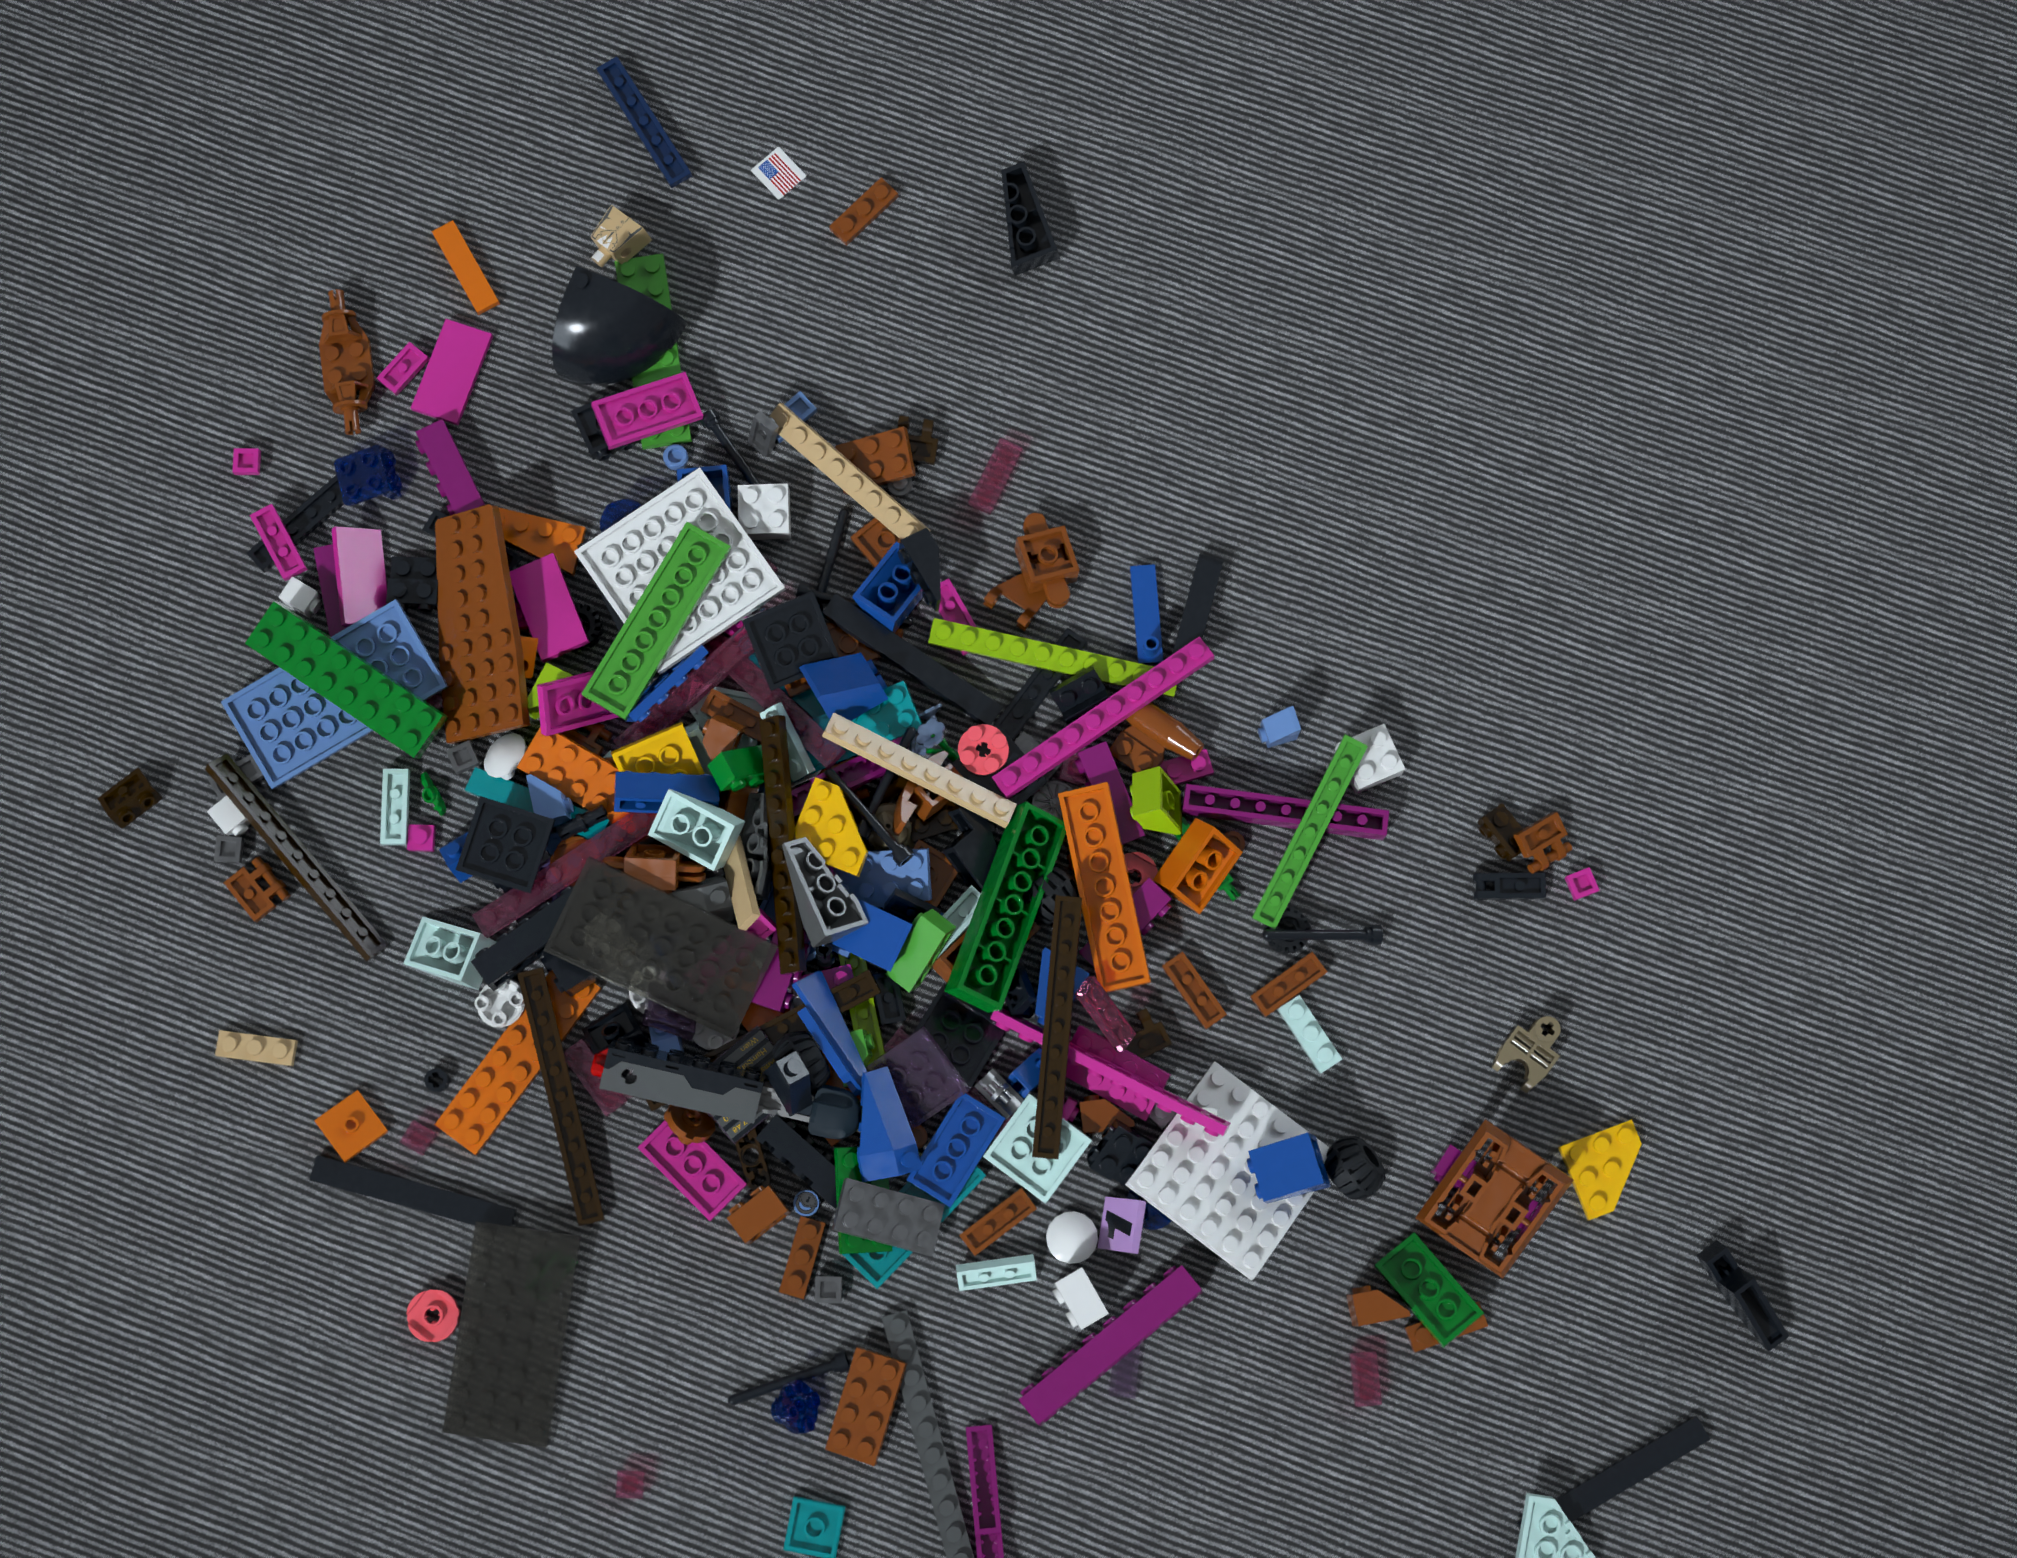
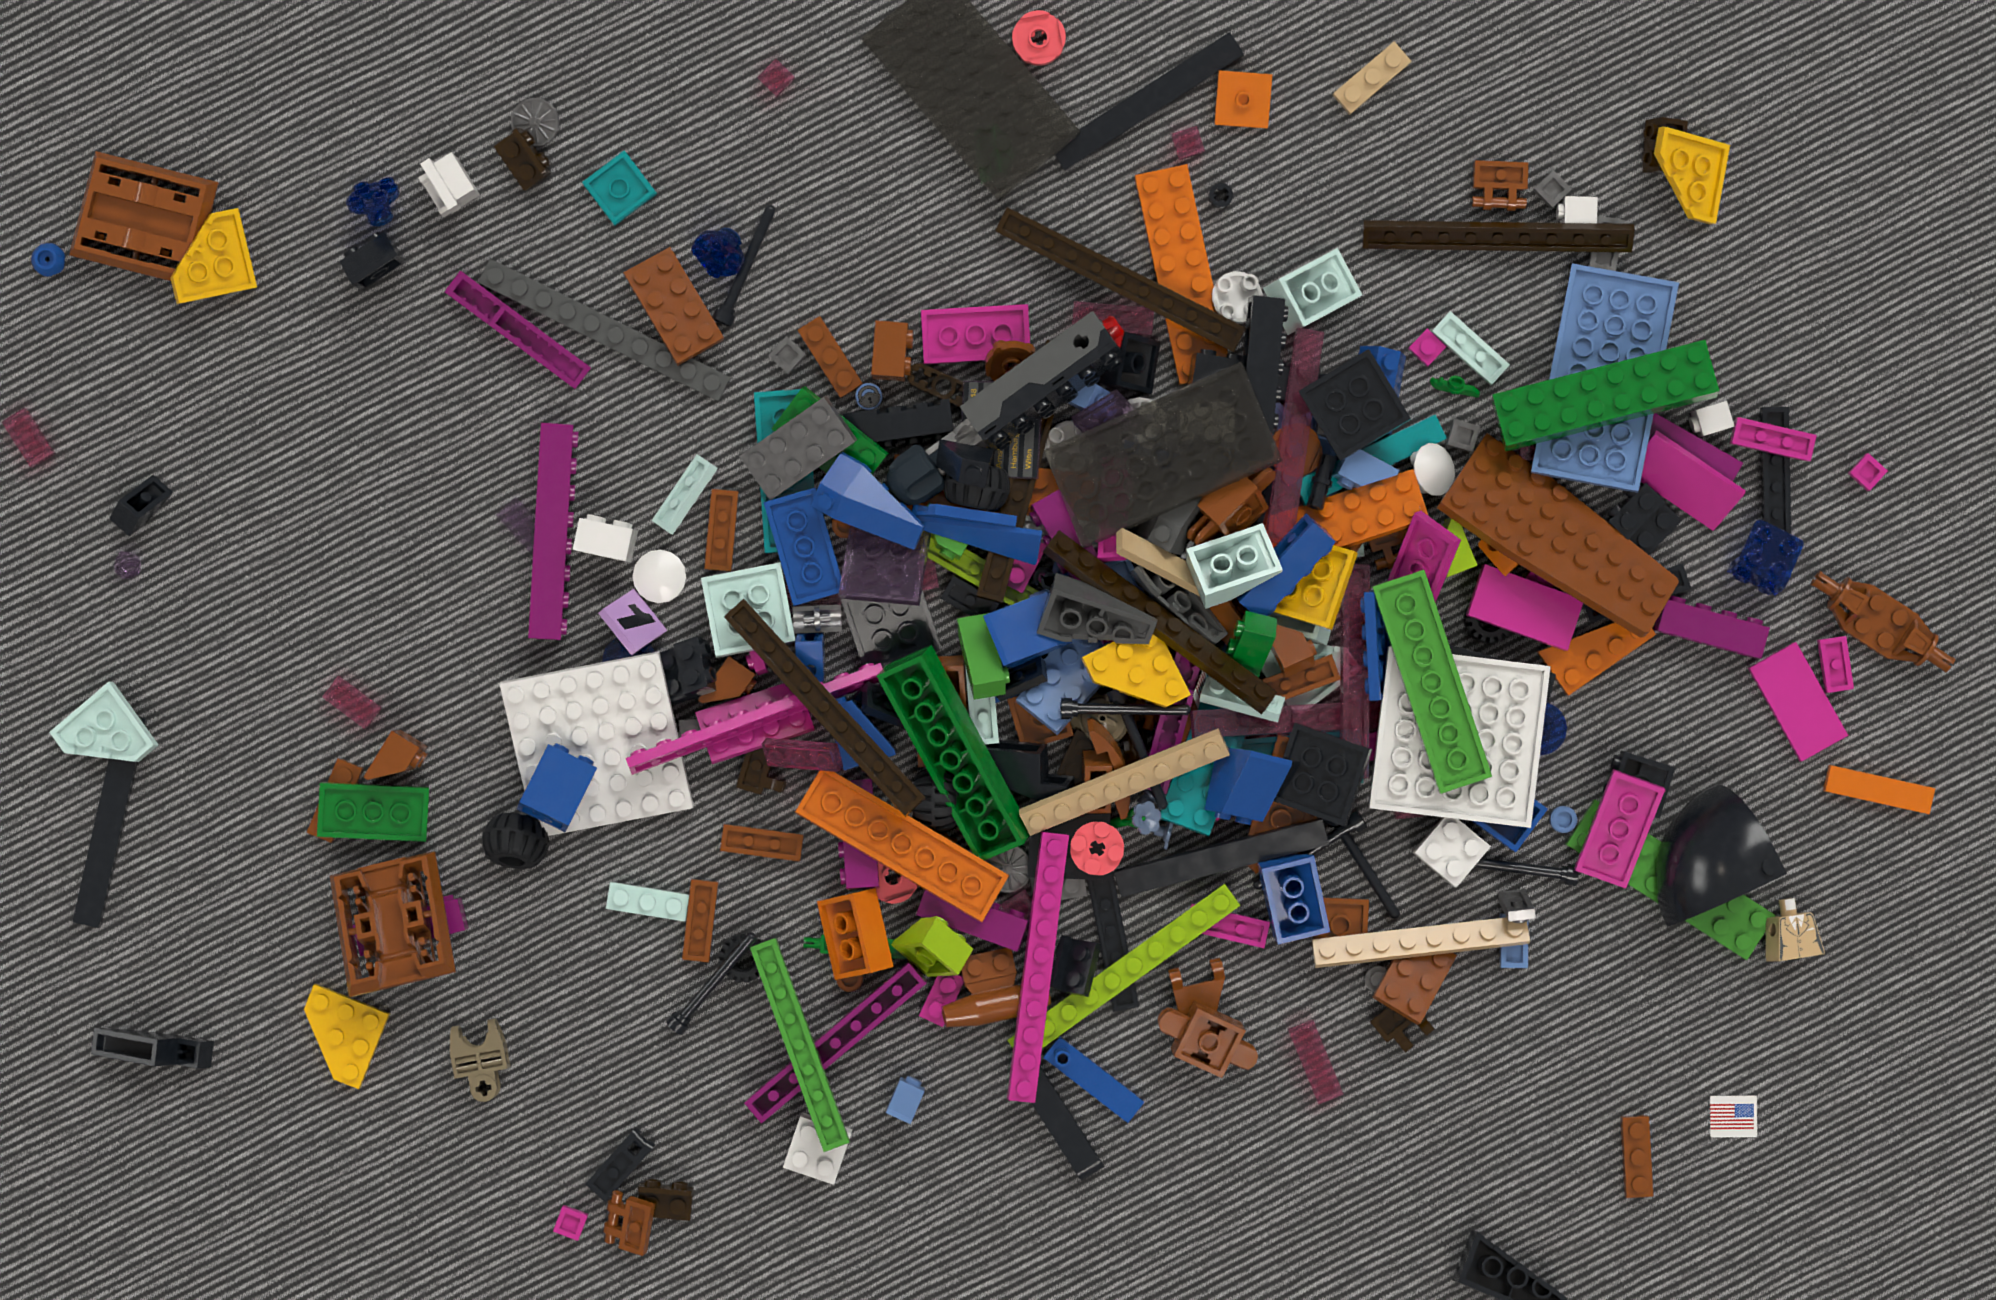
camera: 130 degrees right, 10 degrees up
(130, 761) = (1694, 171): none -> yellow plate
(644, 122) = (1876, 1044): dark blue plate -> none
(923, 560) = (1295, 939): black slope -> none

